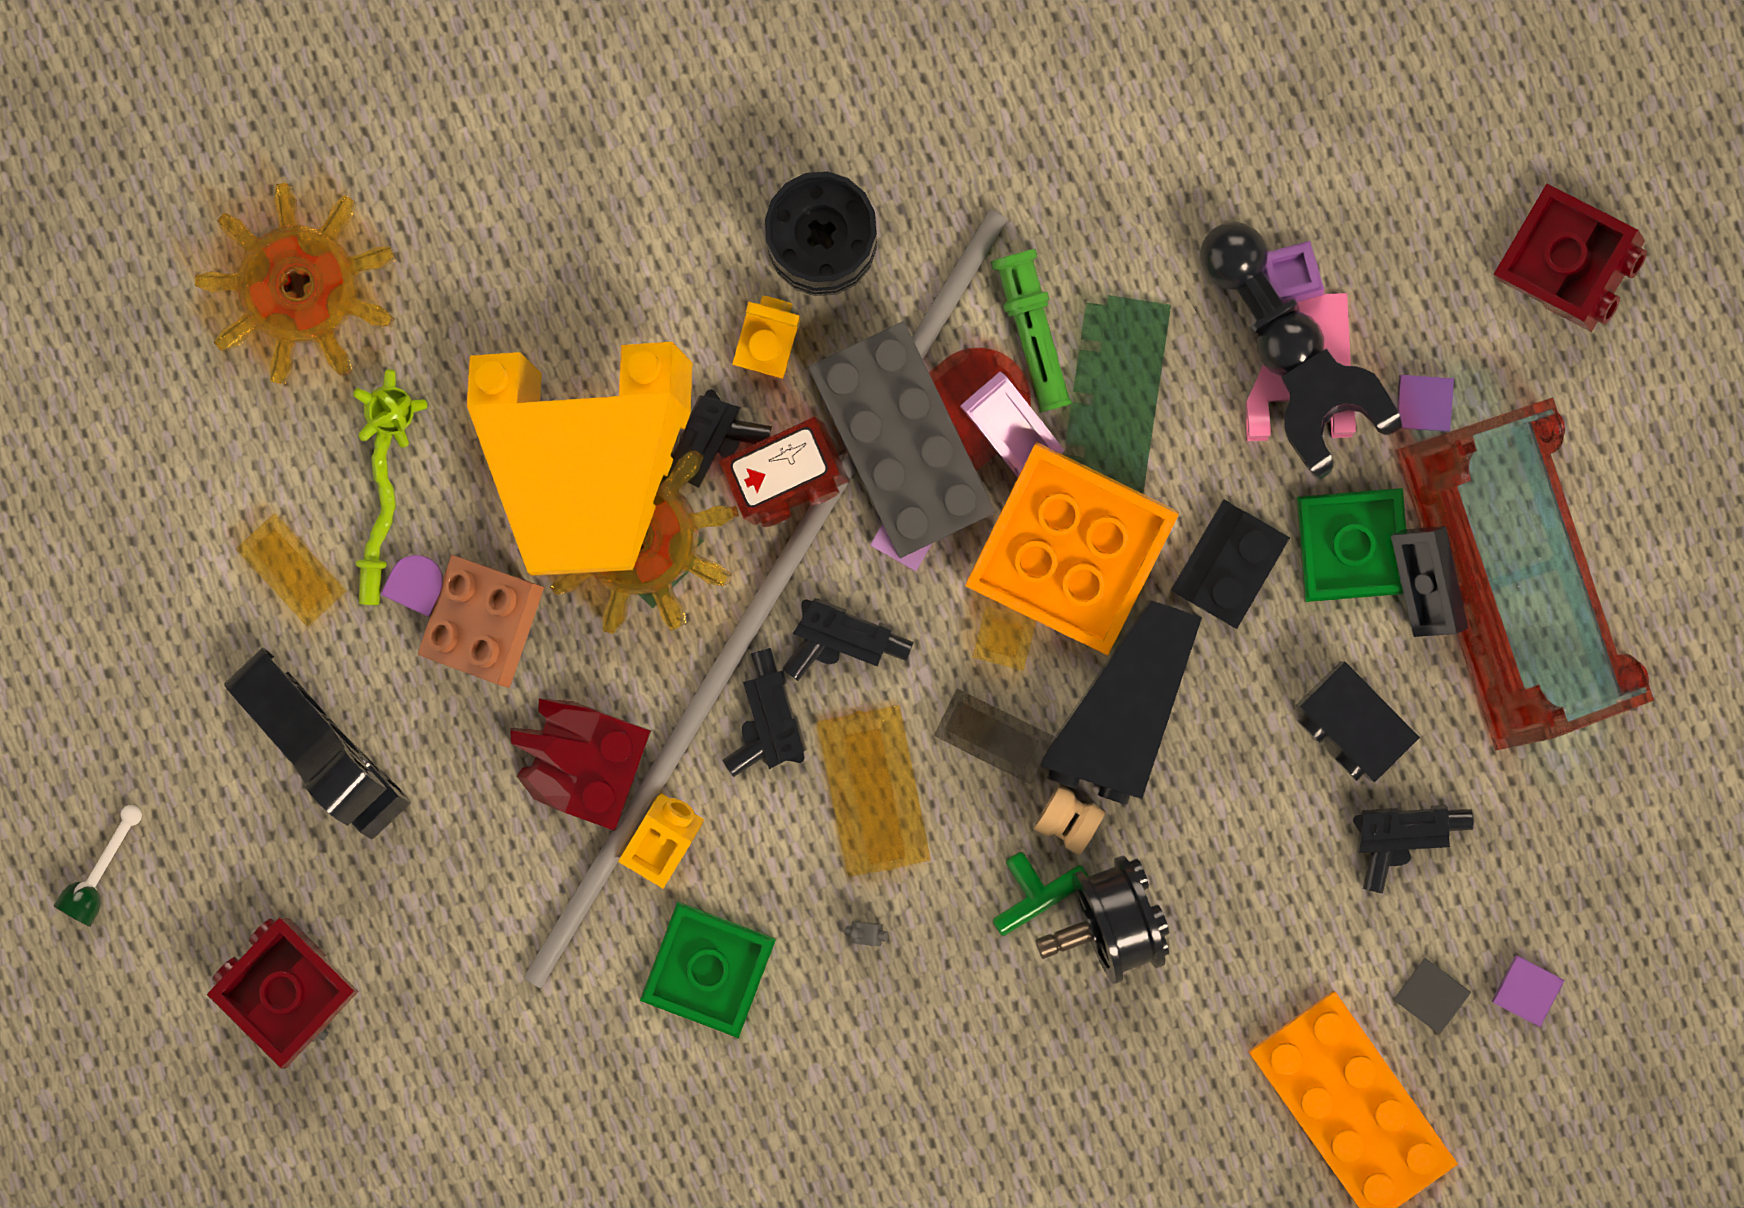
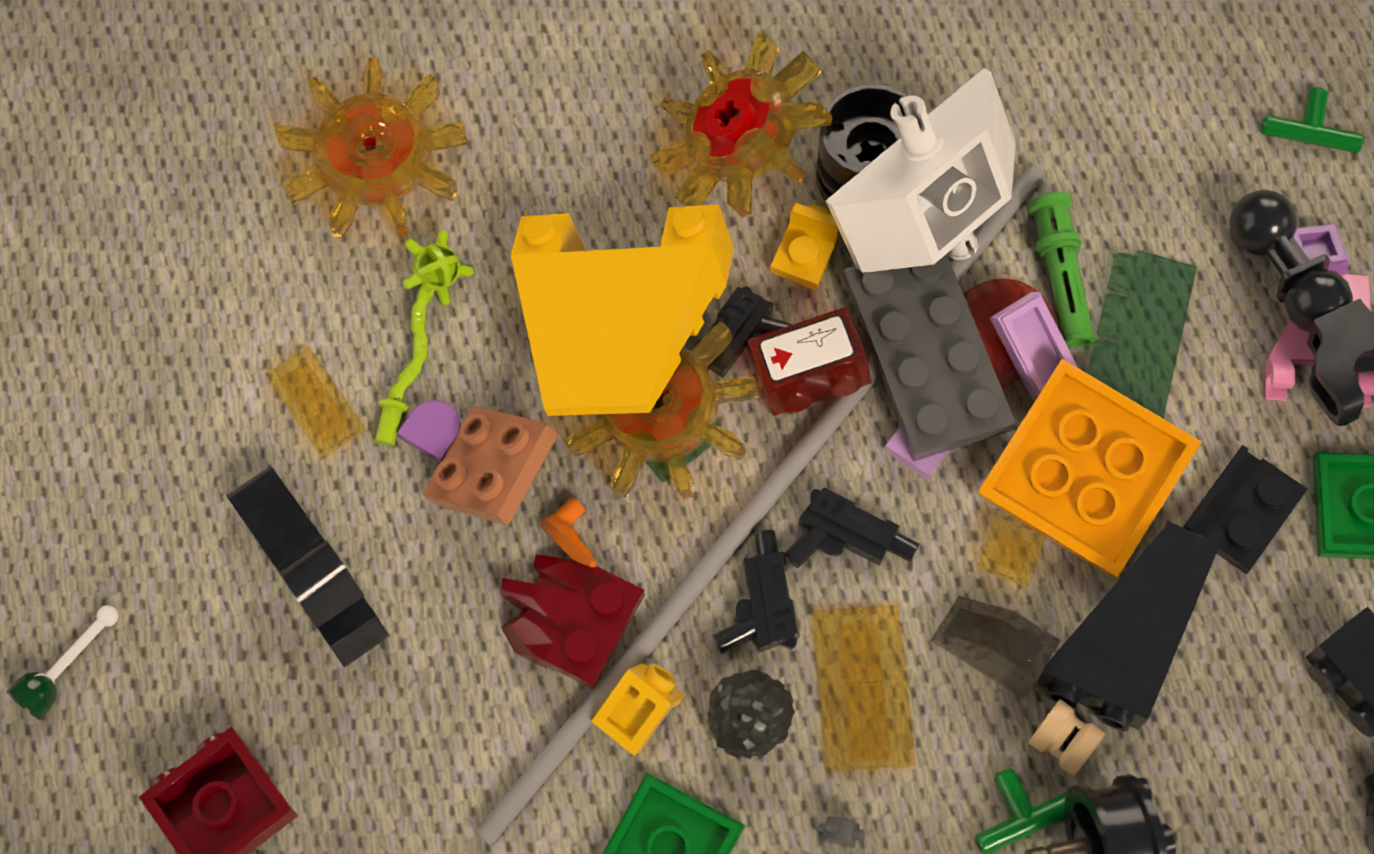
camera: 10 degrees right, 20 degrees down
(556, 673) = (566, 538): none -> orange bar
(682, 225) = (741, 125): none -> clear yellow gear
(767, 838) = (749, 713): none -> pearl dark grey piece
(887, 283) = (931, 183): none -> white slope
(1284, 130) = (1312, 128): none -> green piece

